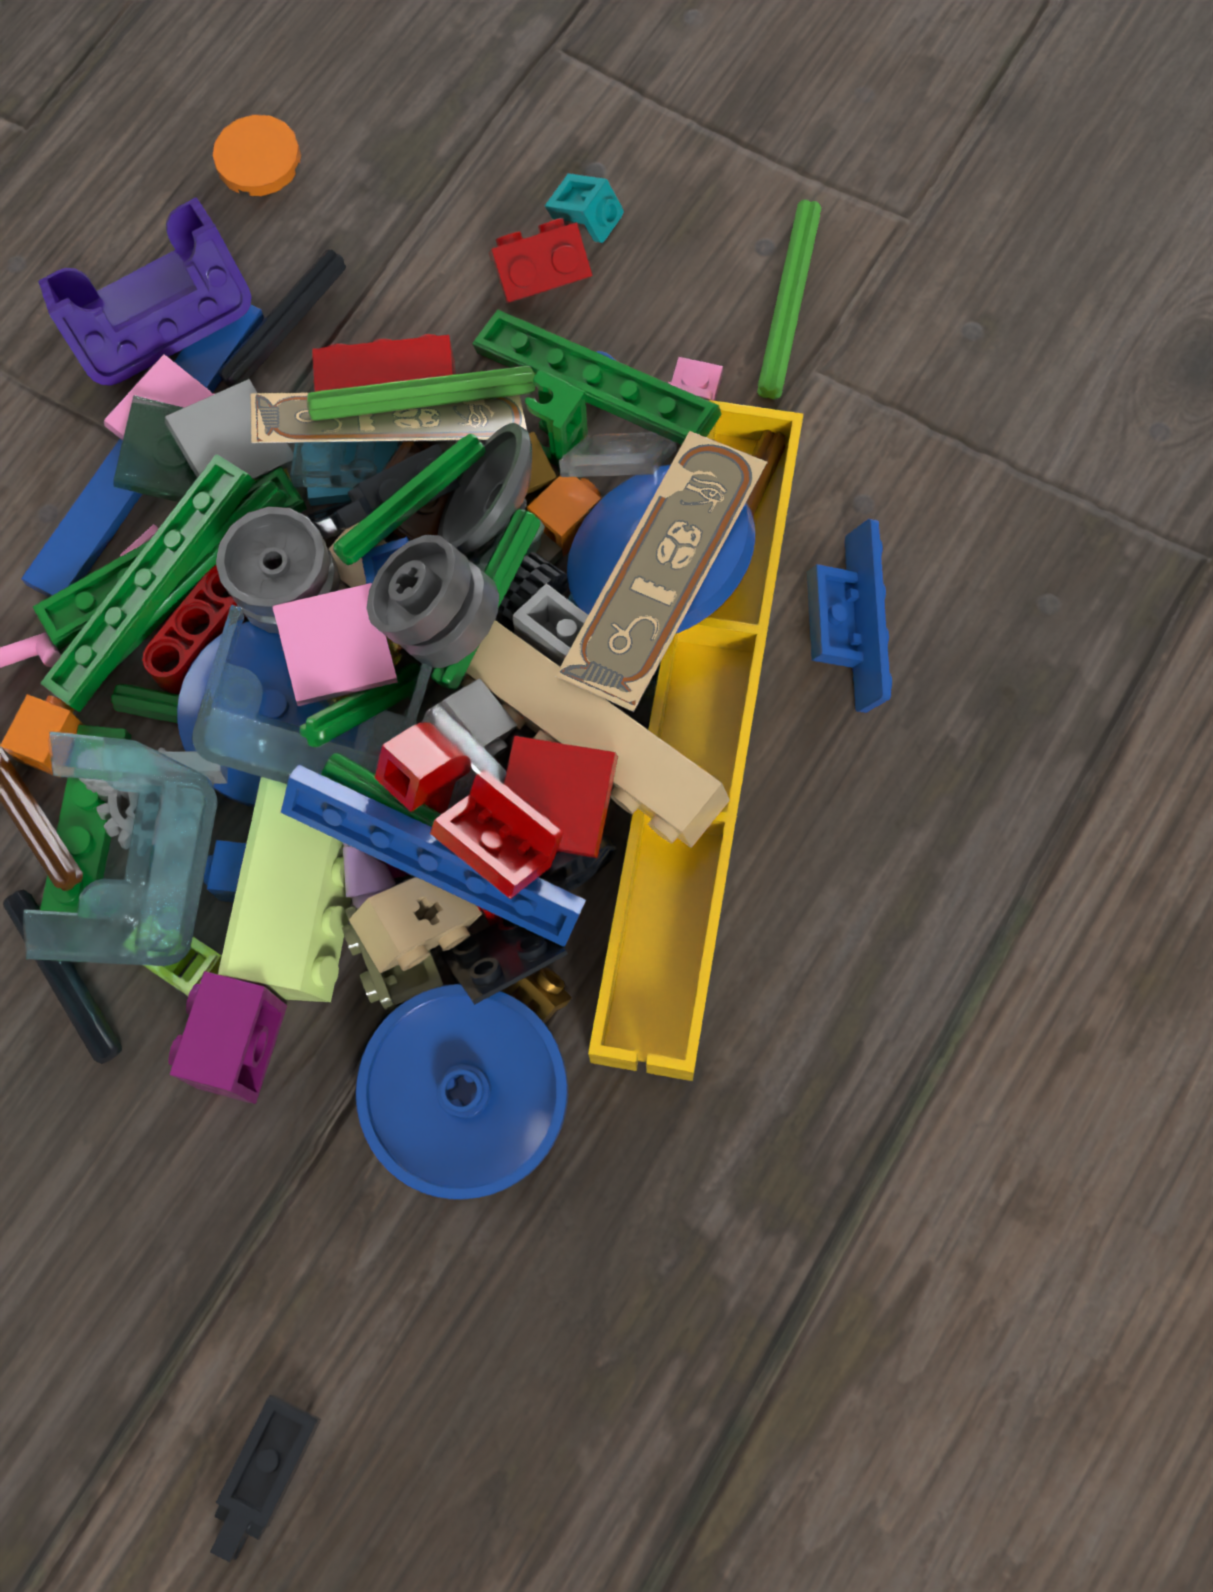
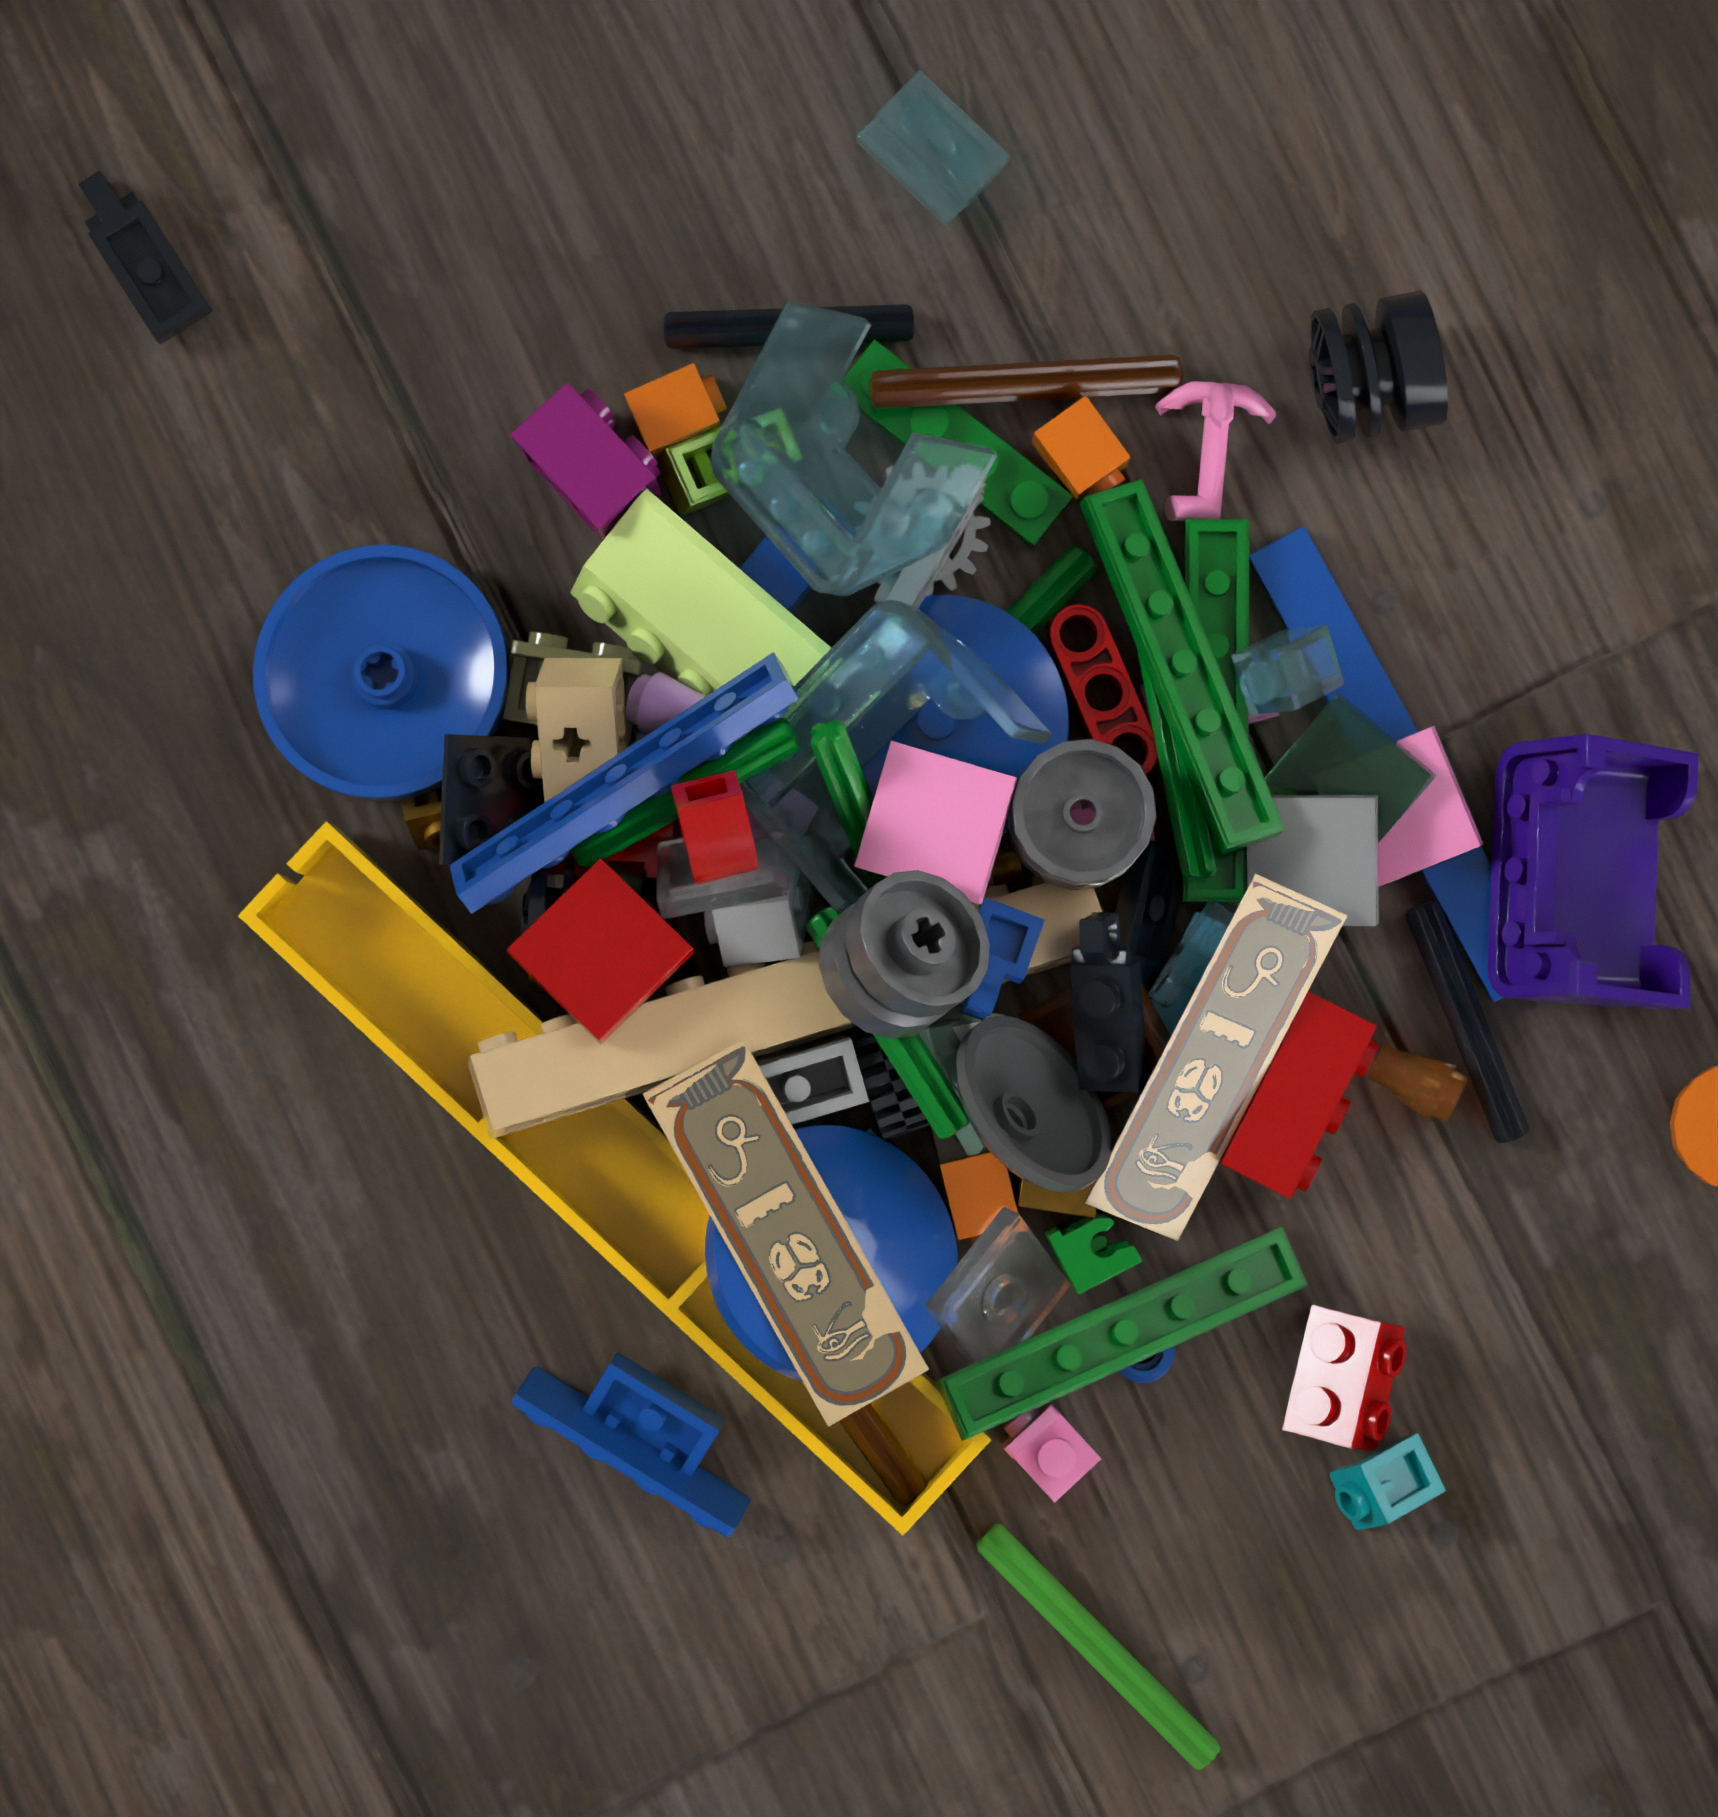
camera: 120 degrees right, 15 degrees up
(116, 524) = (1288, 670): none -> clear light blue brick
(155, 1008) = (675, 408): none -> orange brick
(334, 313) = (1420, 1082): none -> clear orange cone
(408, 499) = (1073, 1013): green axle -> none
(420, 393) = (1222, 1115): bright green axle -> none
(499, 835) = (583, 859): red bracket -> none

